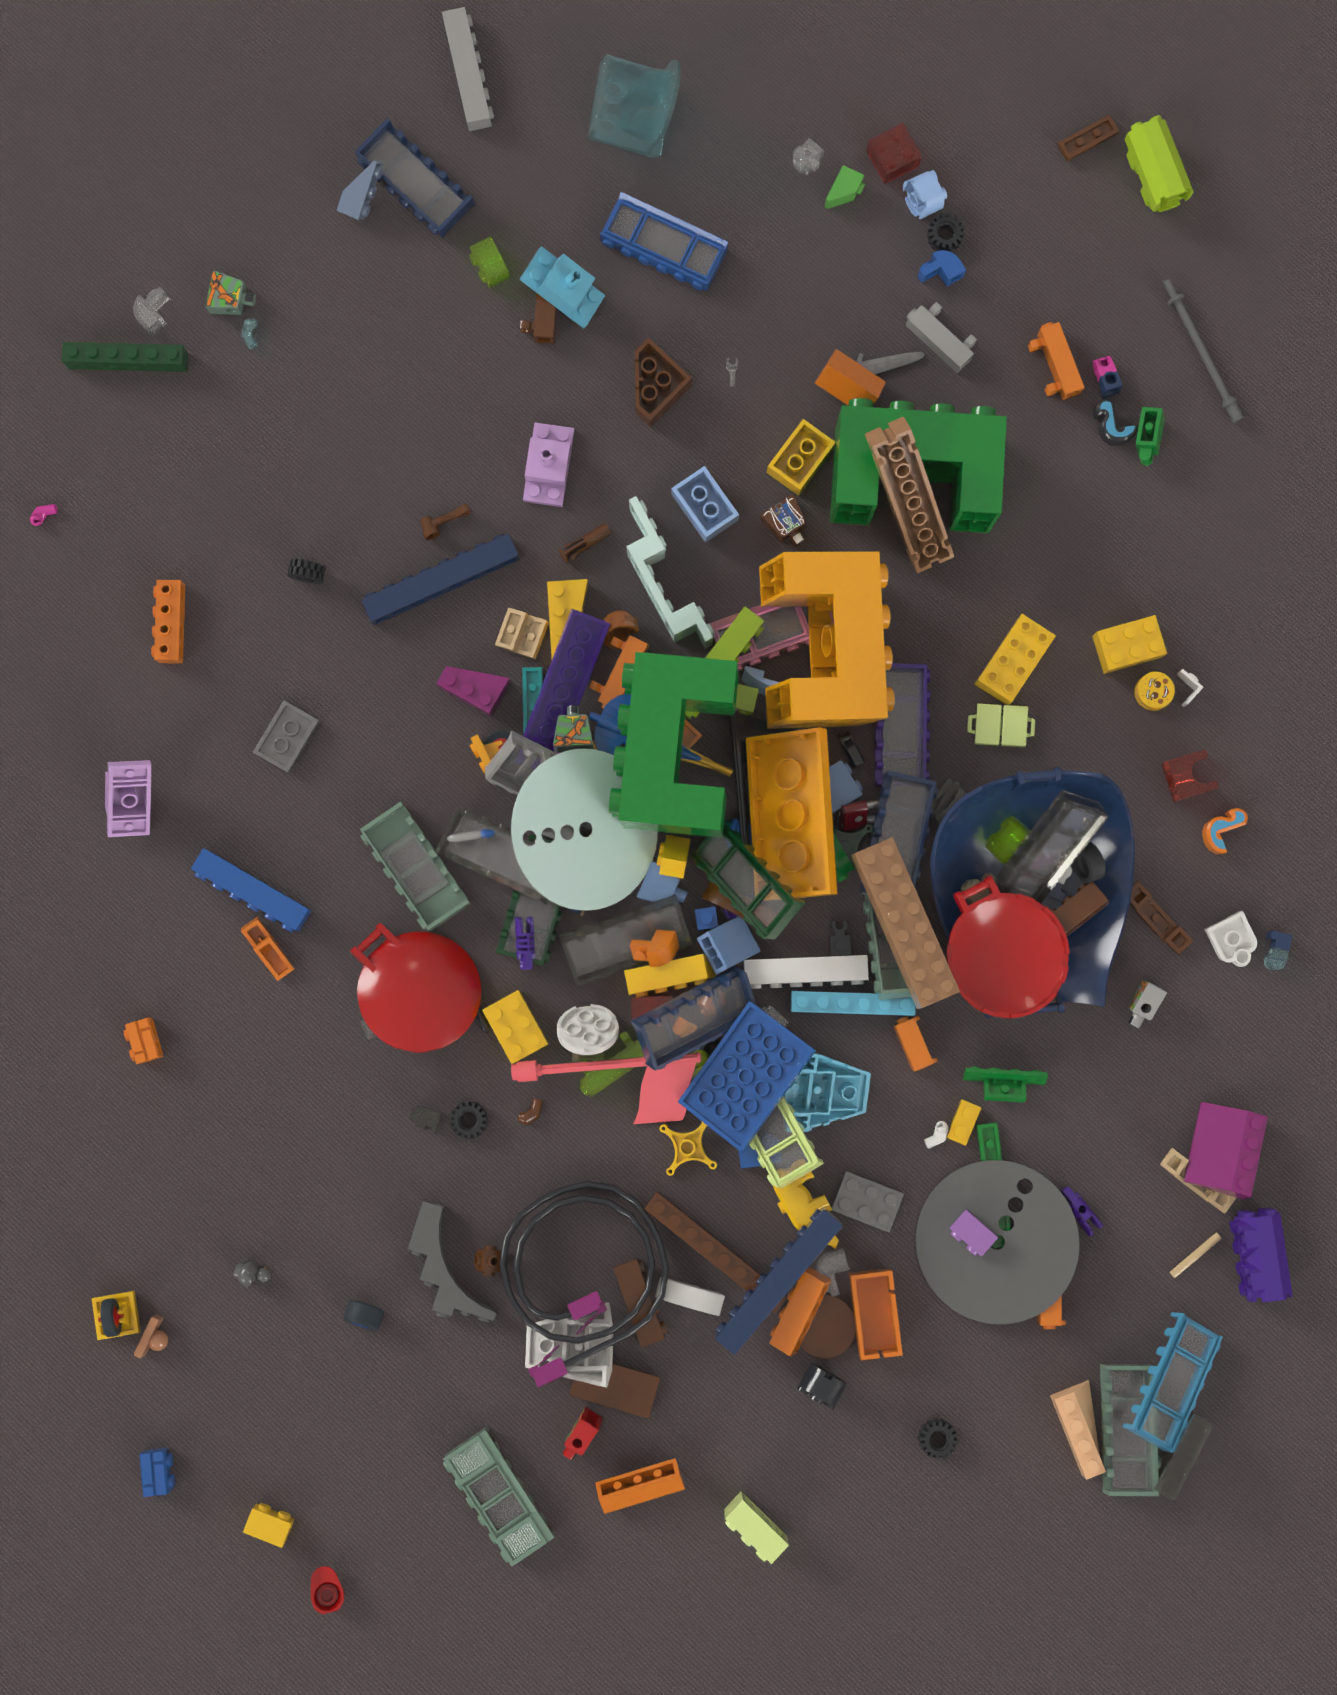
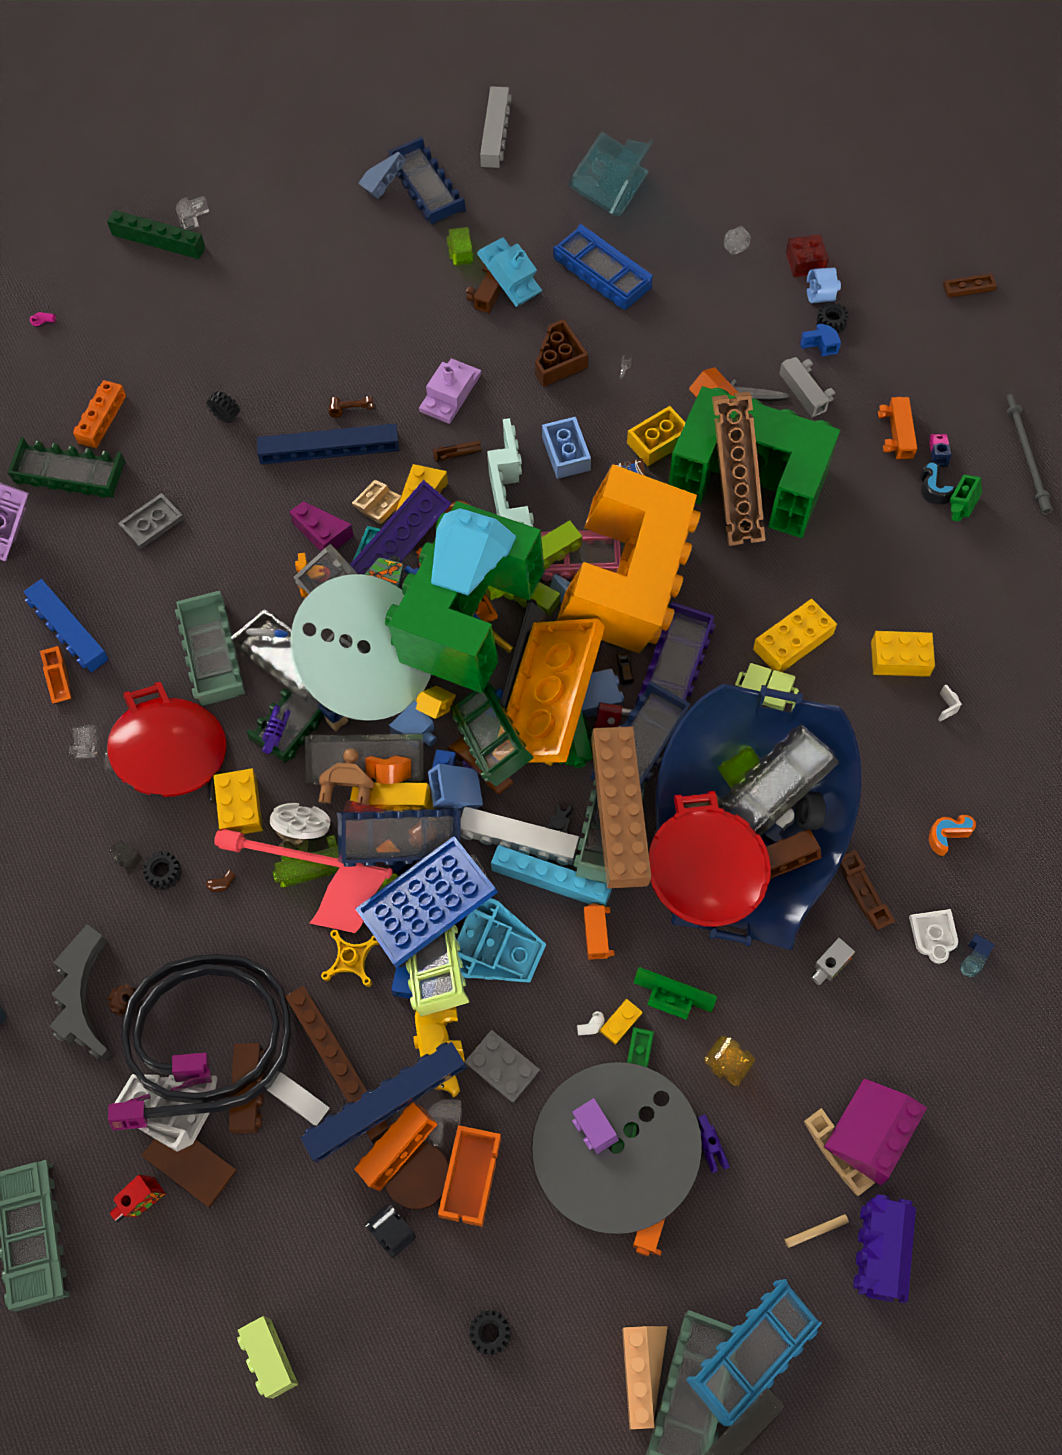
camera: 20 degrees right, 20 degrees down
(164, 702) = (66, 469): none -> window
(228, 295) = (251, 217): torso -> none
(246, 333) = (259, 239): clear light blue arm -> none
(332, 1013) = (85, 741): none -> clear brick
(619, 969) = (346, 775): none -> medium nougat connector
(639, 1486) = (170, 1272): orange brick -> none
(669, 711) = (468, 549): none -> medium azure wedge
(845, 187) = (759, 268): bright green slope -> none
(1076, 1131) = (729, 1060): none -> clear yellow brick
(1154, 691) = (915, 698): yellow head -> none
(1158, 164) = (1022, 312): lime brick -> none
(1180, 777) = (920, 777): clear red piece -> none

